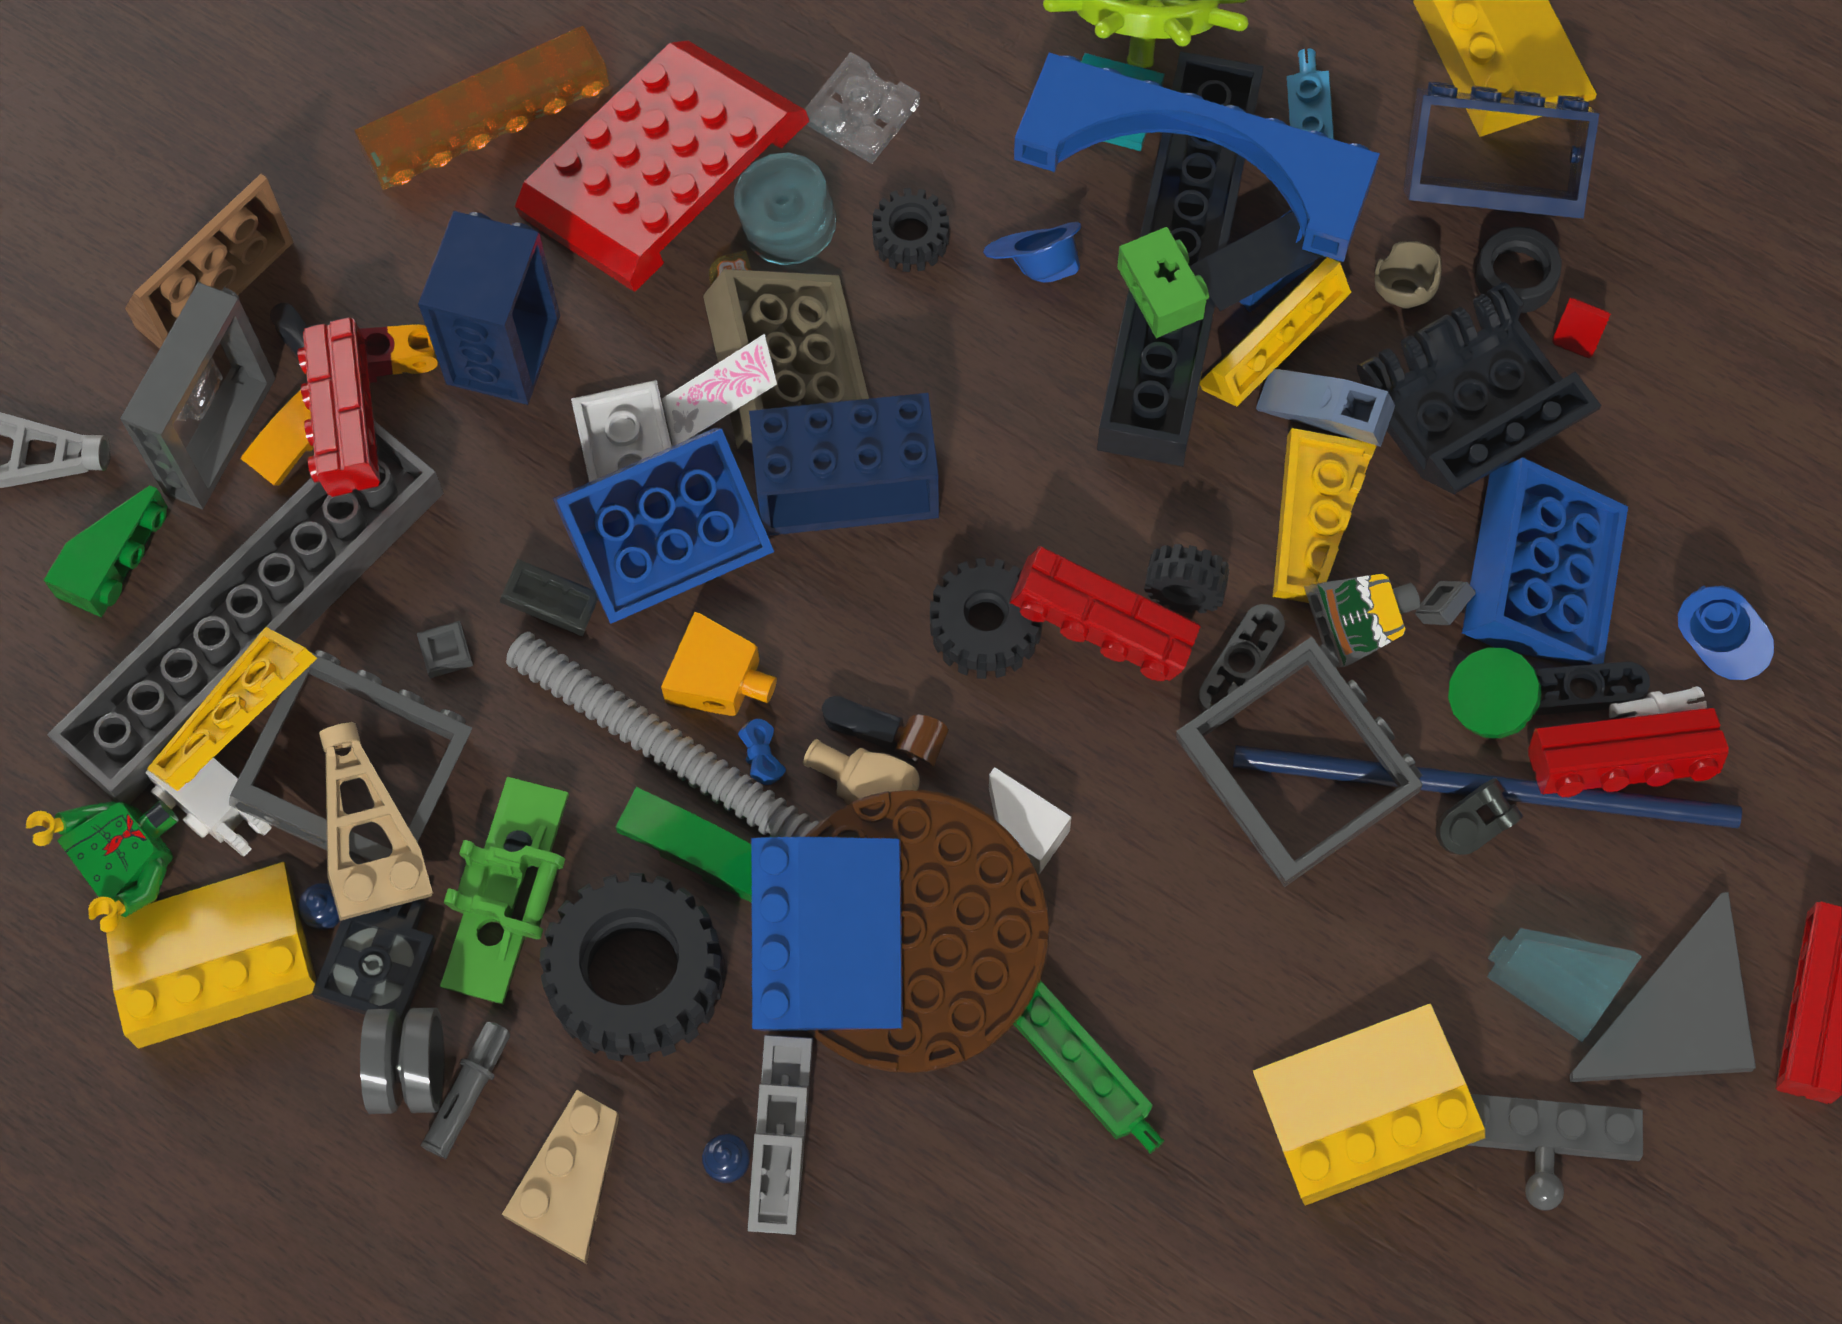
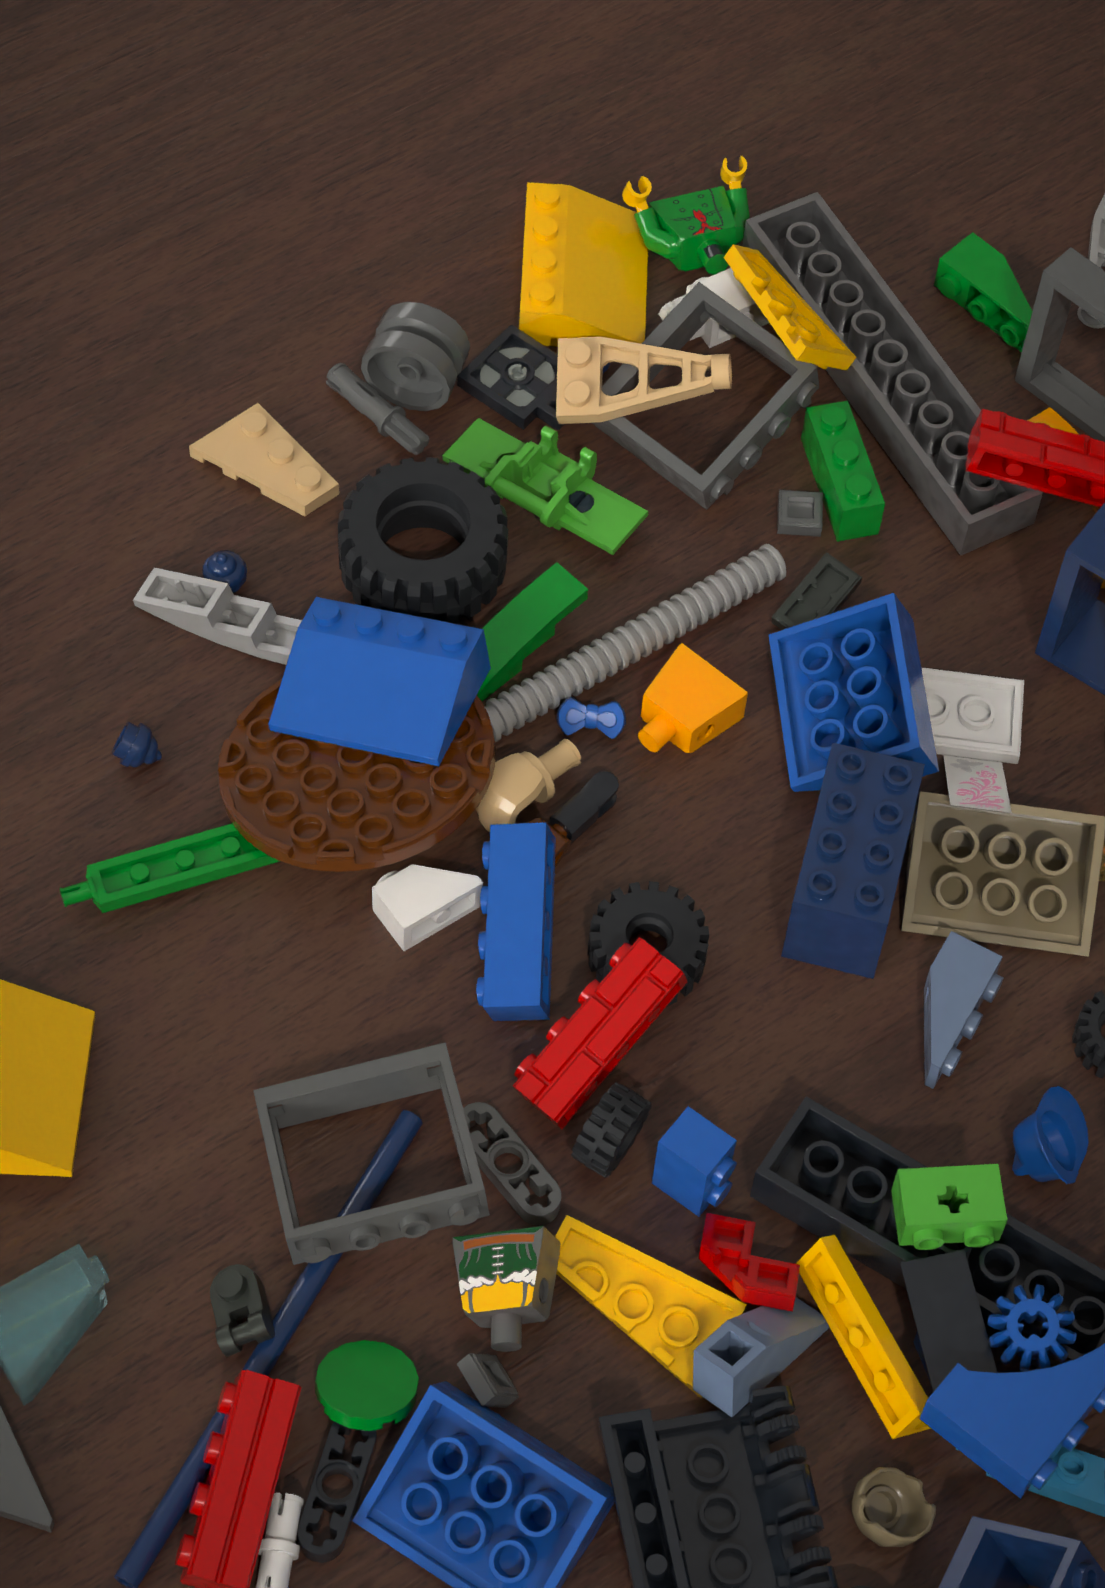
camera: 105 degrees right, 10 degrees down
(390, 616) = (842, 471): none -> green brick
(936, 361) = (952, 995): none -> sand blue slope
(964, 1155) = (136, 746): none -> dark blue plate
(1020, 722) = (517, 922): none -> blue brick
(1190, 501) = (694, 1162): none -> blue brick
(1241, 194) = (1029, 1311): none -> blue gear
(1250, 460) = (753, 1279): none -> red tile

